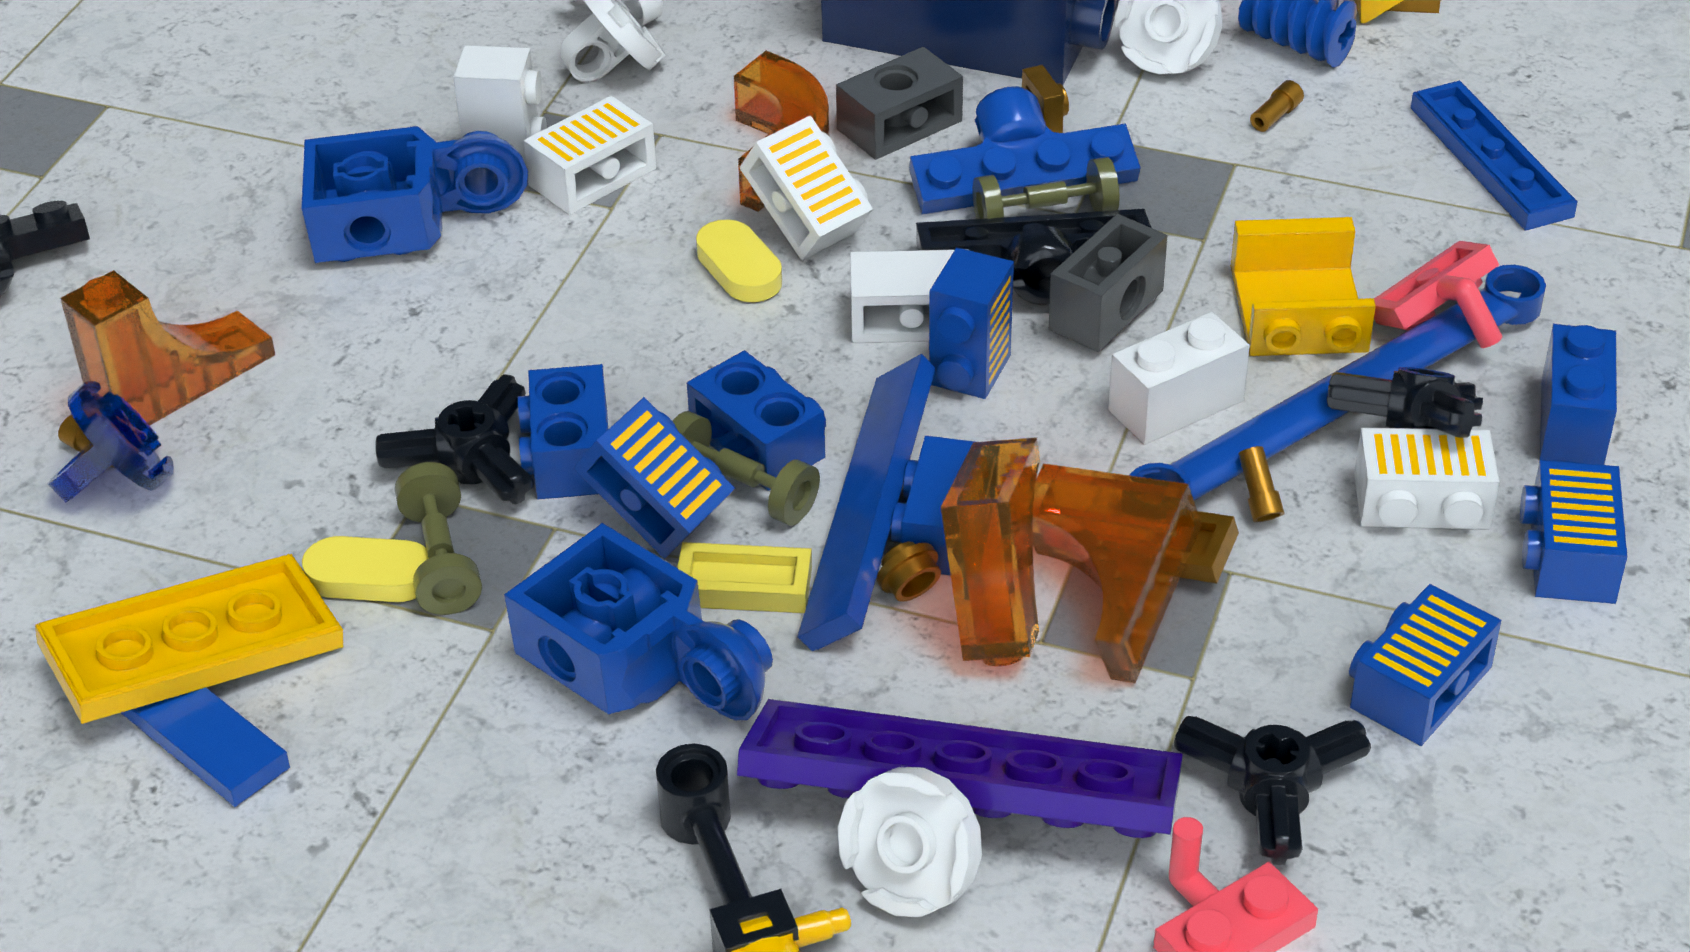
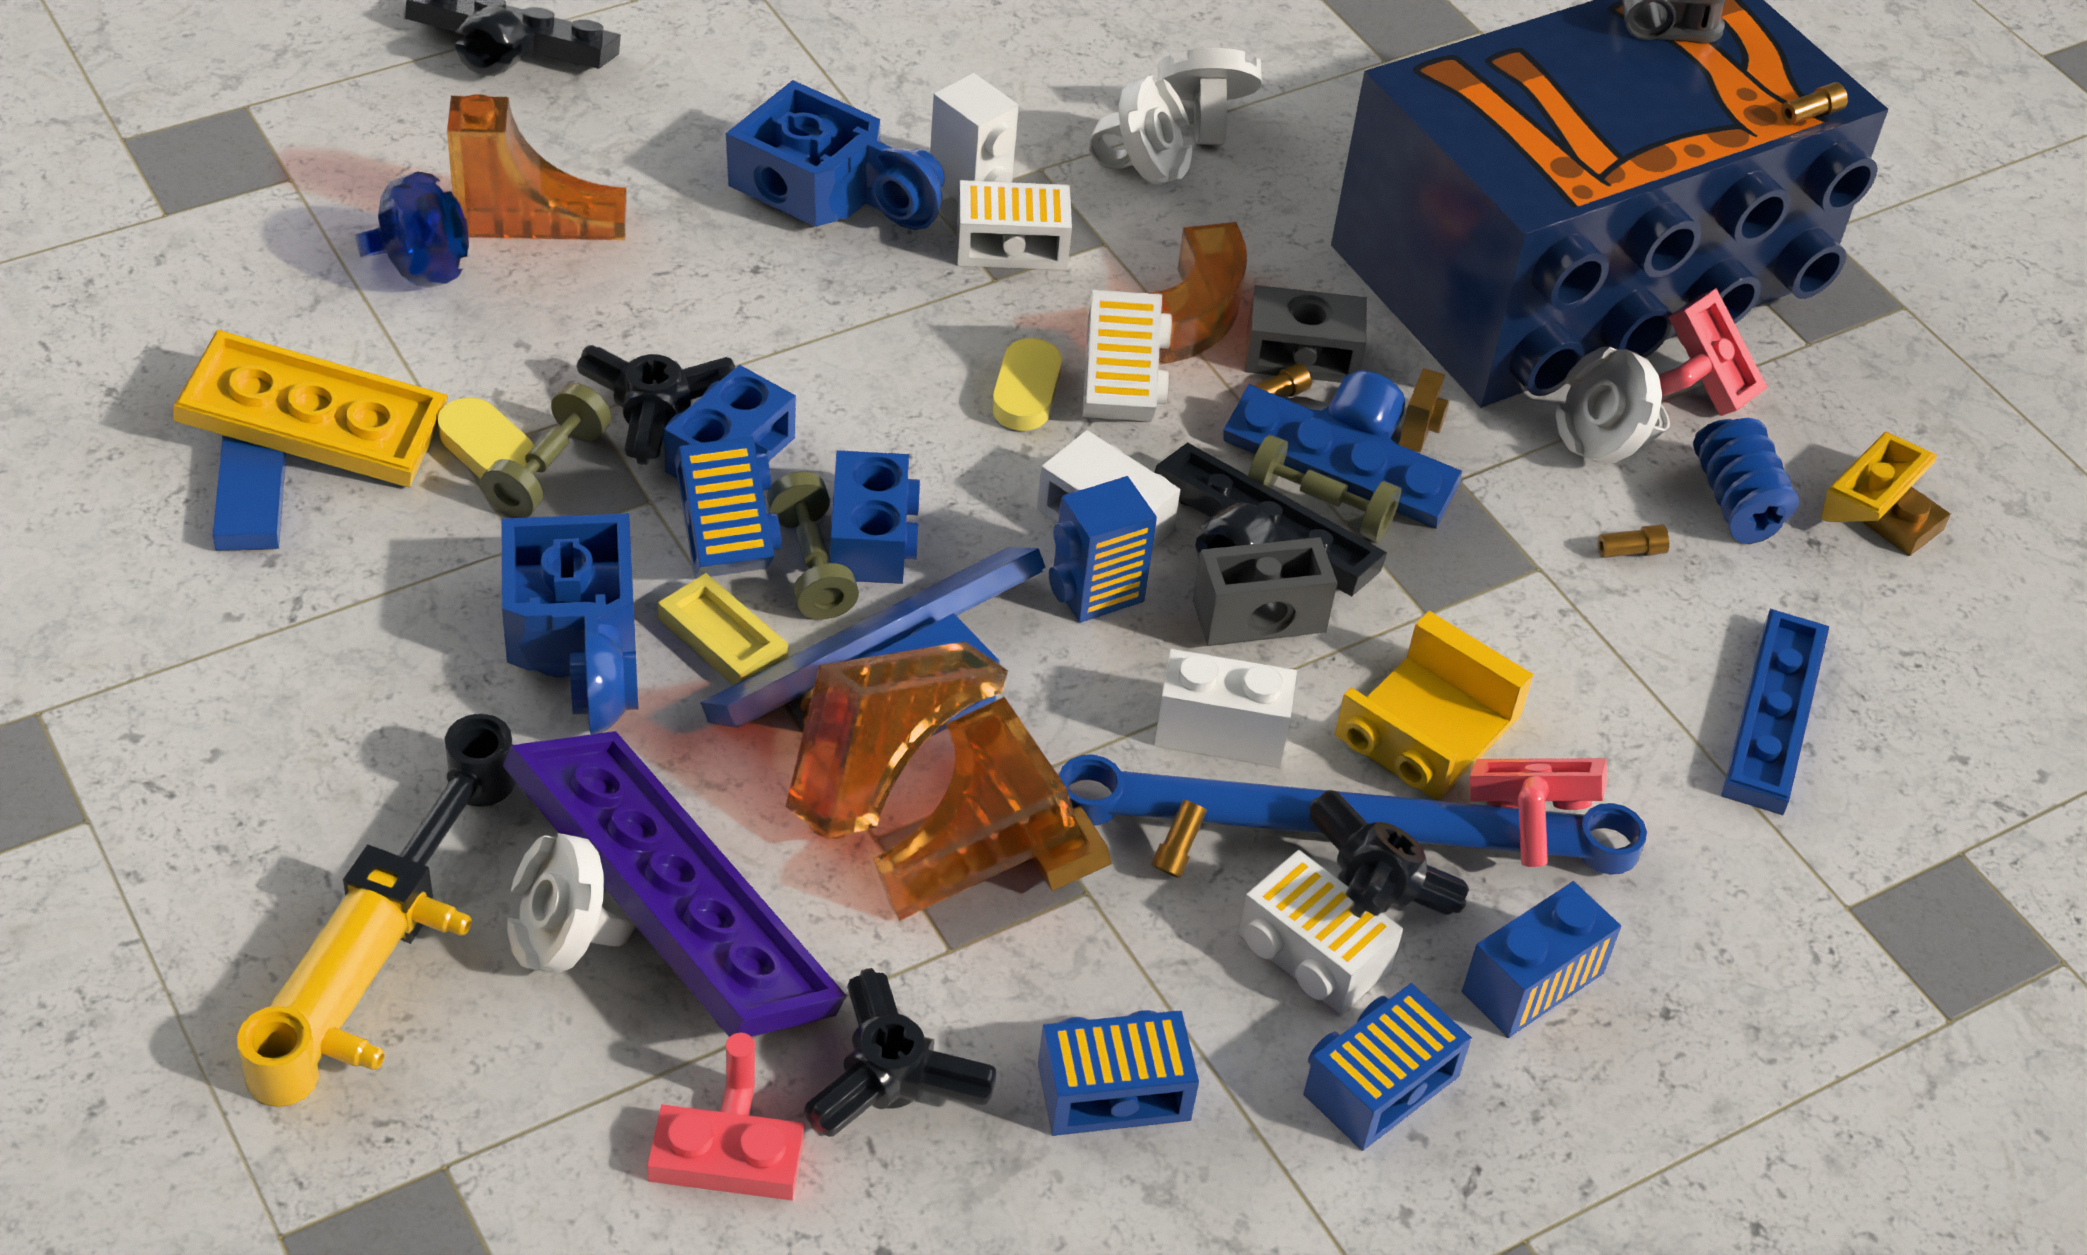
camera: 35 degrees right, 5 degrees up
(922, 141) = (1288, 382): none -> pearl gold piece

